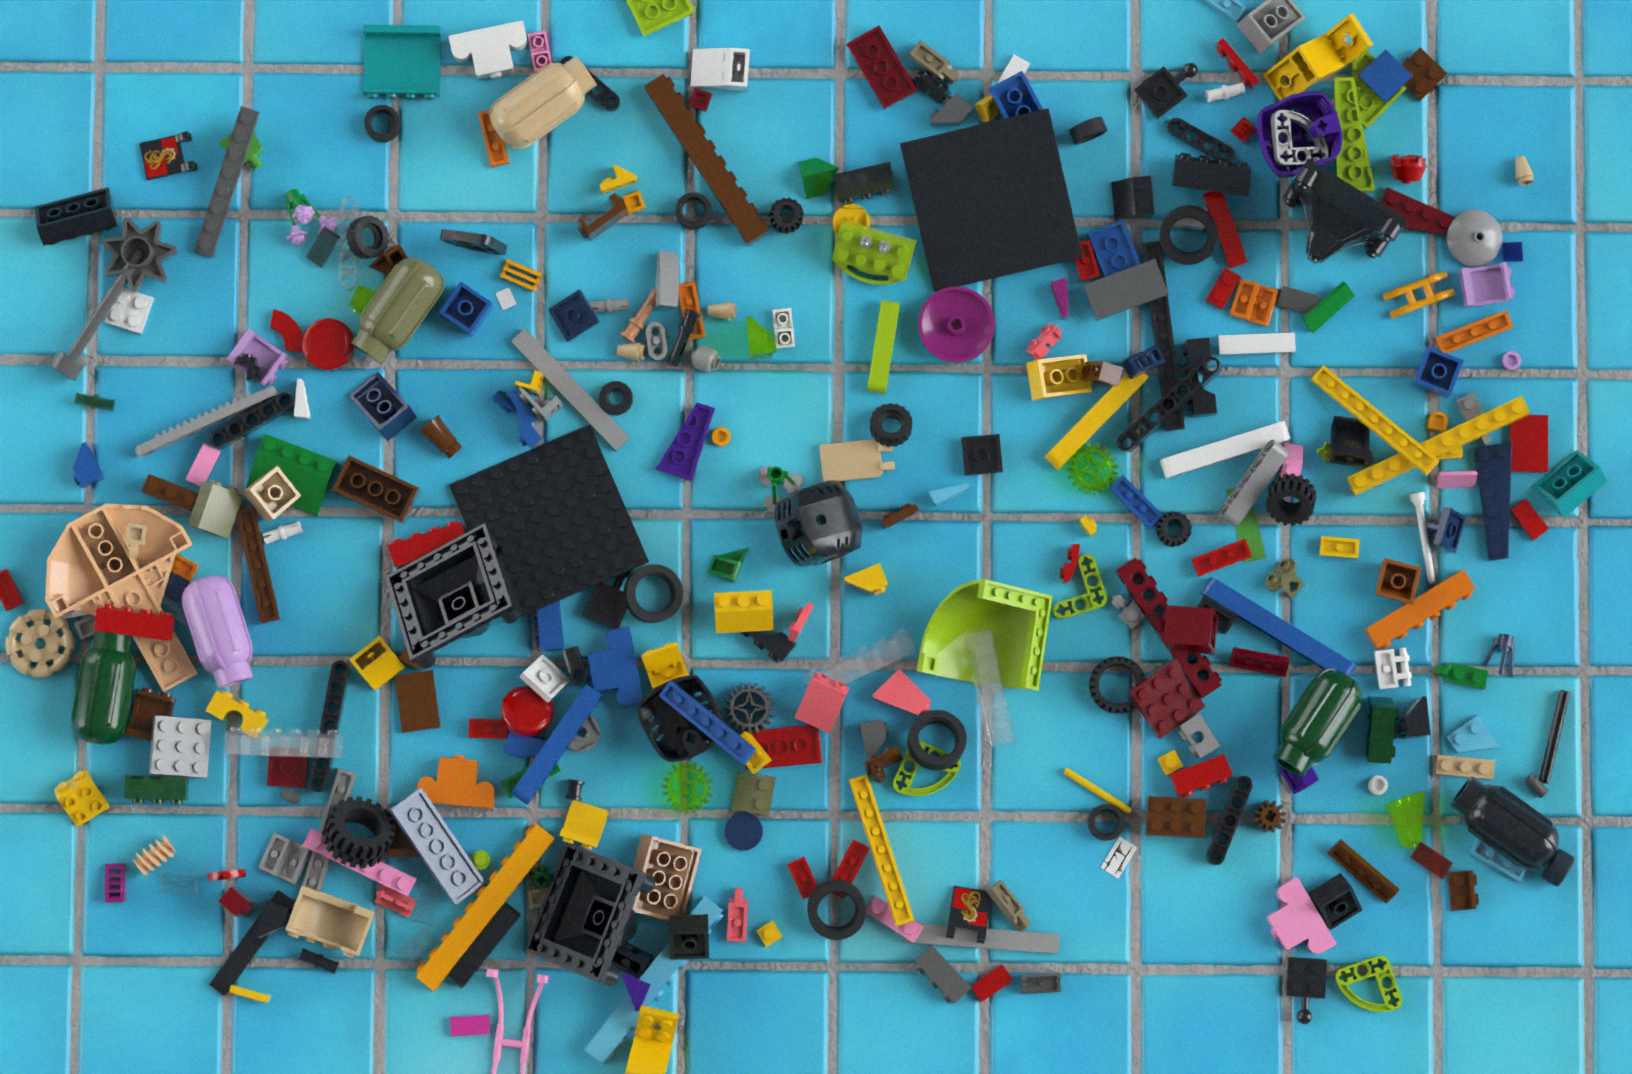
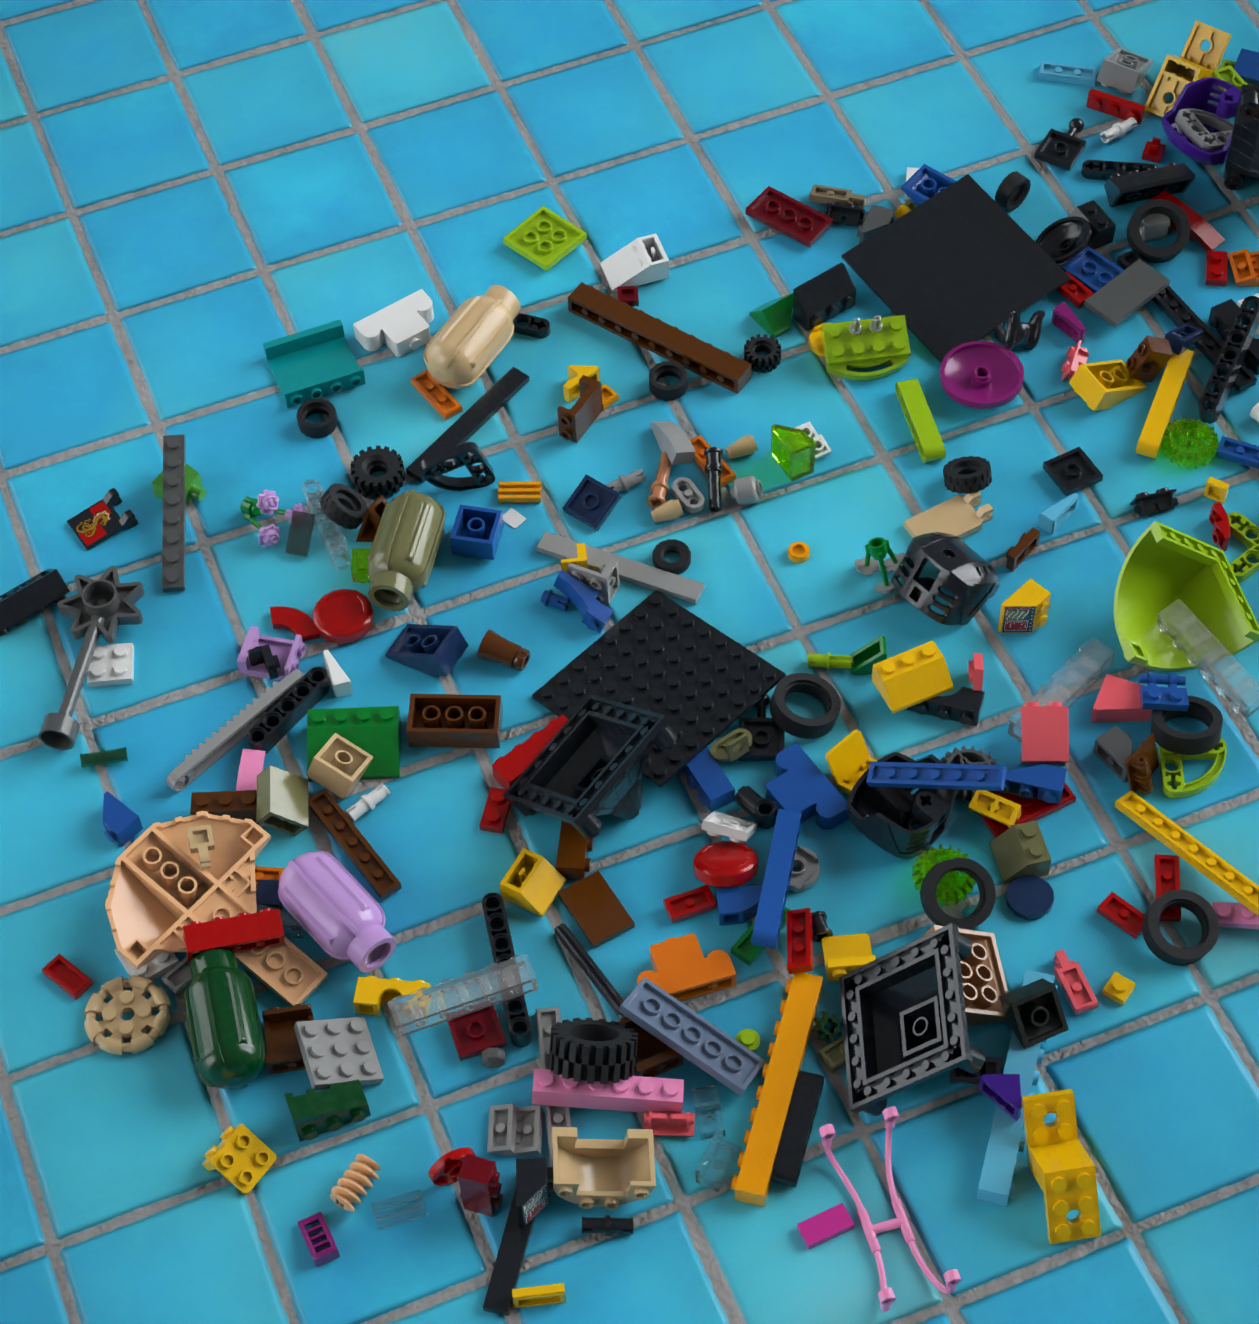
camera: 15 degrees left, 30 degrees down
(376, 582) = (495, 811): none -> red plate
(392, 751) = (589, 967): none -> black axle
(407, 192) = (373, 461): none -> black tyre
(507, 183) = (473, 418): none -> black tile
(539, 49) = (444, 308): bright pink slope -> none
(550, 802) = (799, 941): none -> red plate
(578, 608) = (731, 745): none -> olive bracket
(685, 835) = (985, 884): none -> black tyre
(687, 446) = (768, 571): dark purple wing -> none
(693, 555) = (829, 661): none -> lime axle
(797, 742) = (1036, 782): none -> blue slope
(929, 712) = (1163, 698): none -> blue plate
(1010, 294) = (1019, 333): none -> black hair
(1025, 511) = (1145, 502): none -> black hinge
(1098, 199) = (1065, 238): none -> black dish

